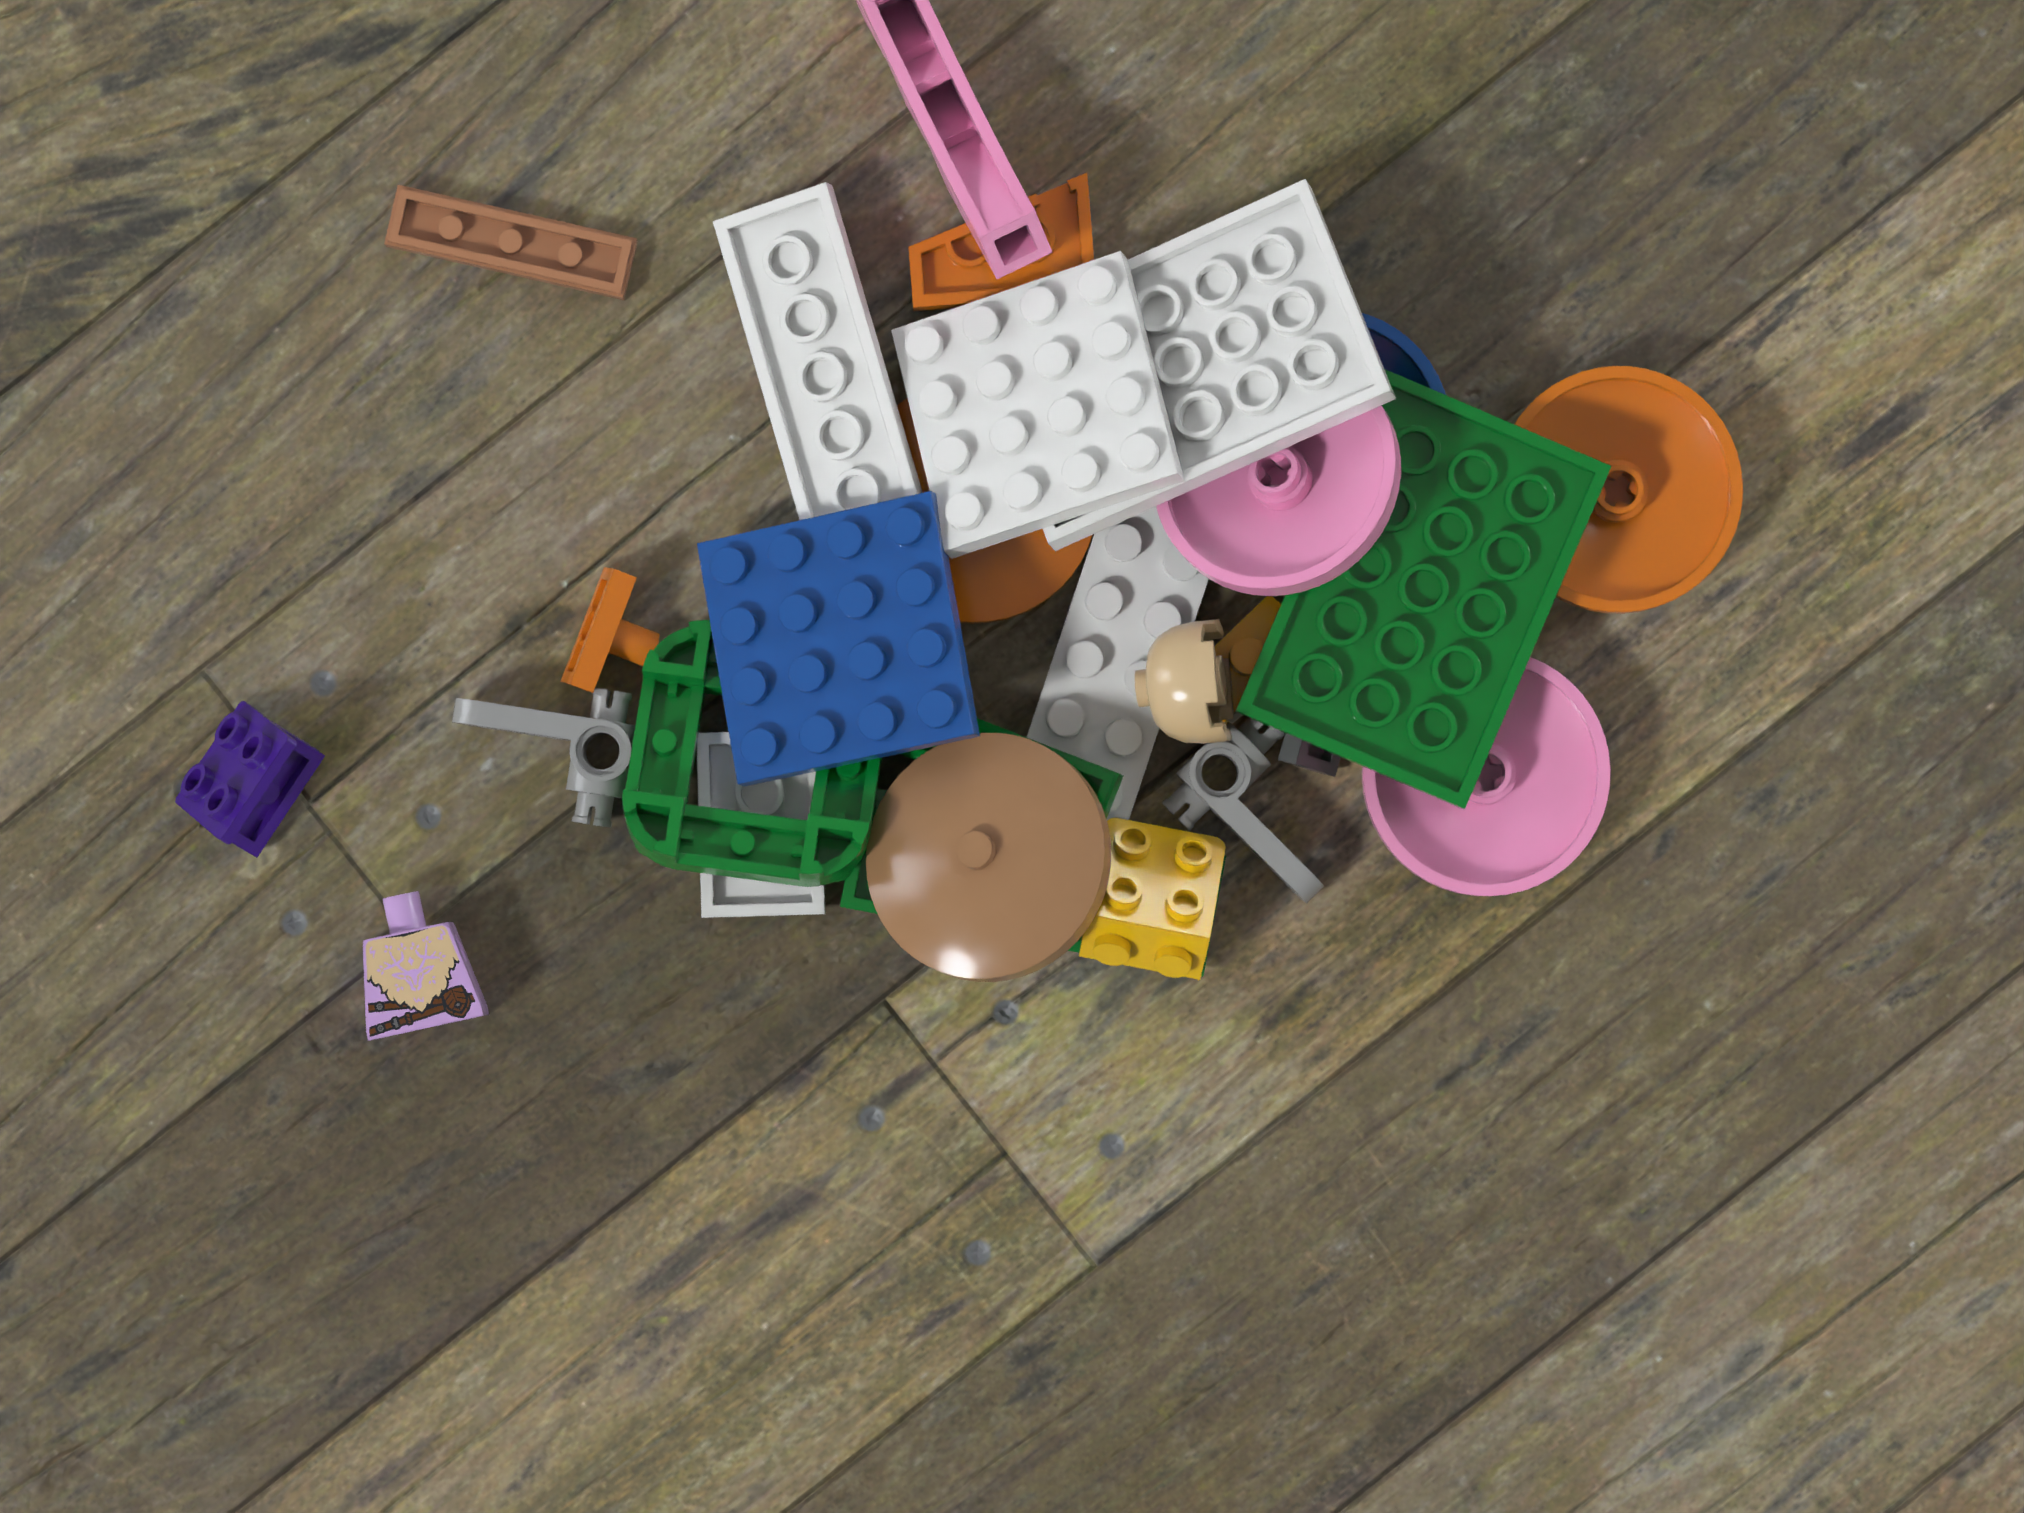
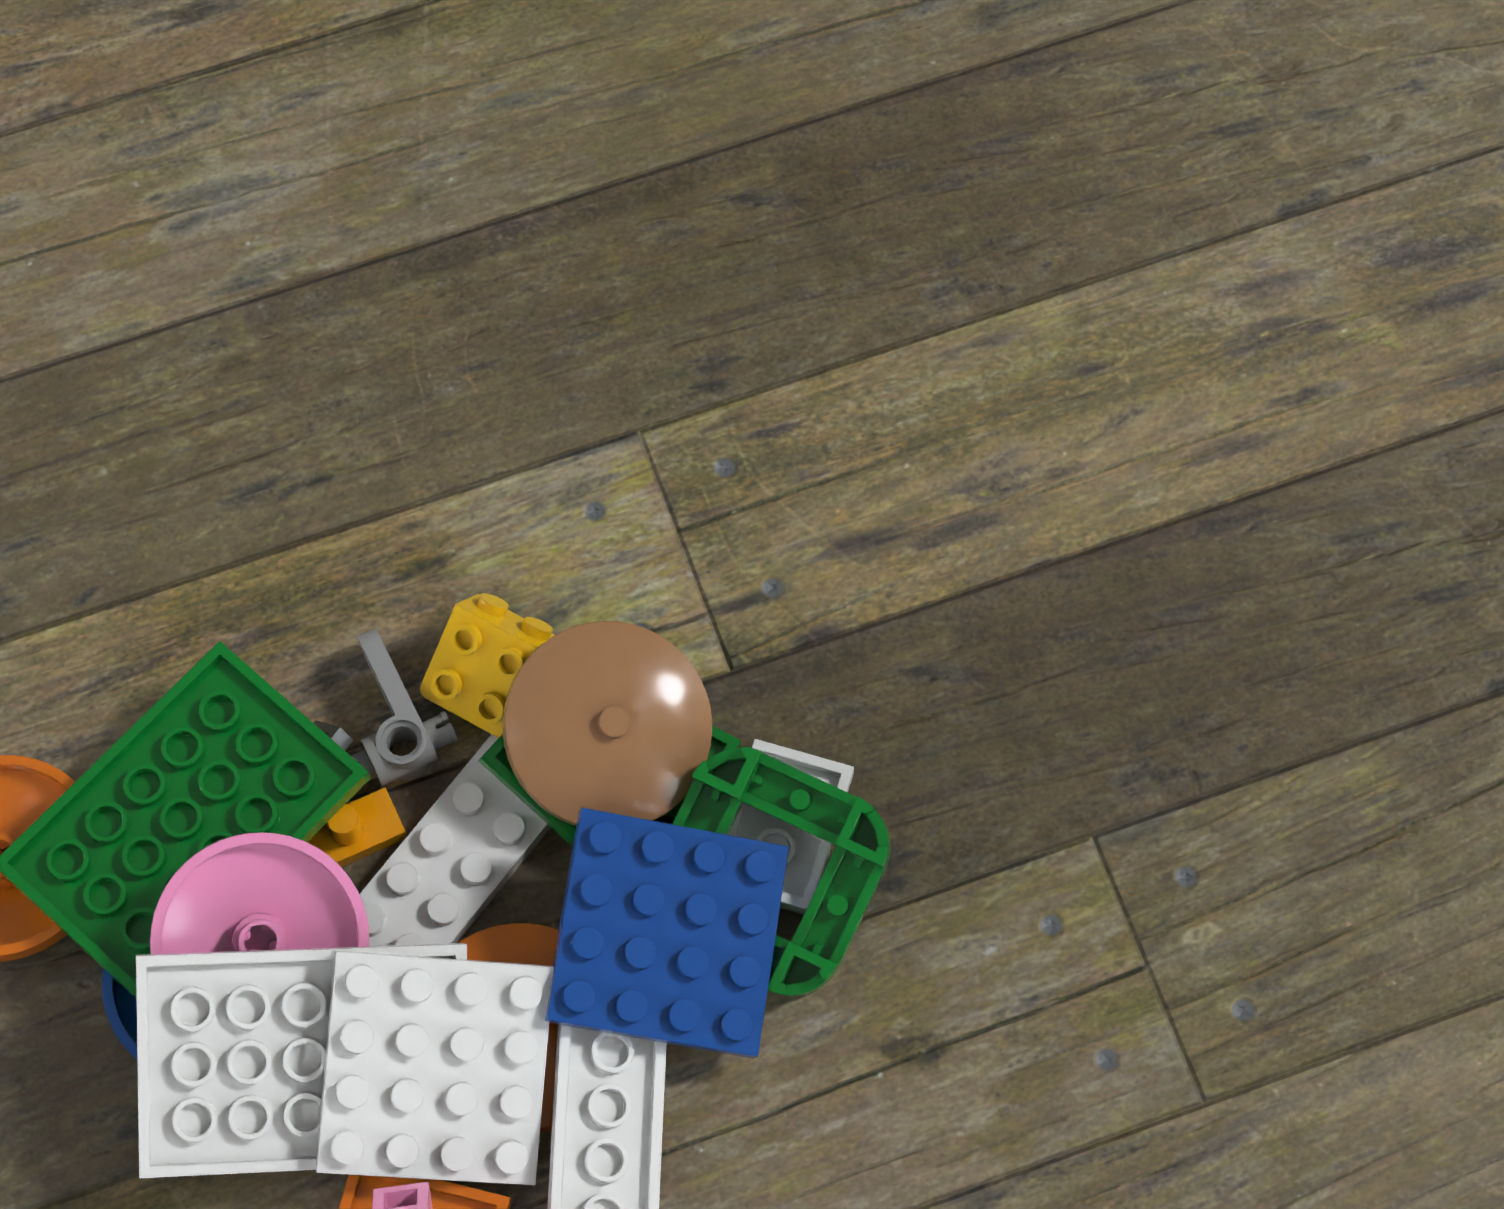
camera: 165 degrees left, 20 degrees down
(247, 779) = (1194, 994): dark purple bracket -> none
(417, 973) = (1096, 795): torso -> none
(594, 786) = (908, 899): light grey piece -> none
(607, 633) = (857, 1016): orange tile -> none
(1188, 684) = (399, 808): tan cylinder -> none
(1528, 808) = (170, 631): bright pink dish -> none

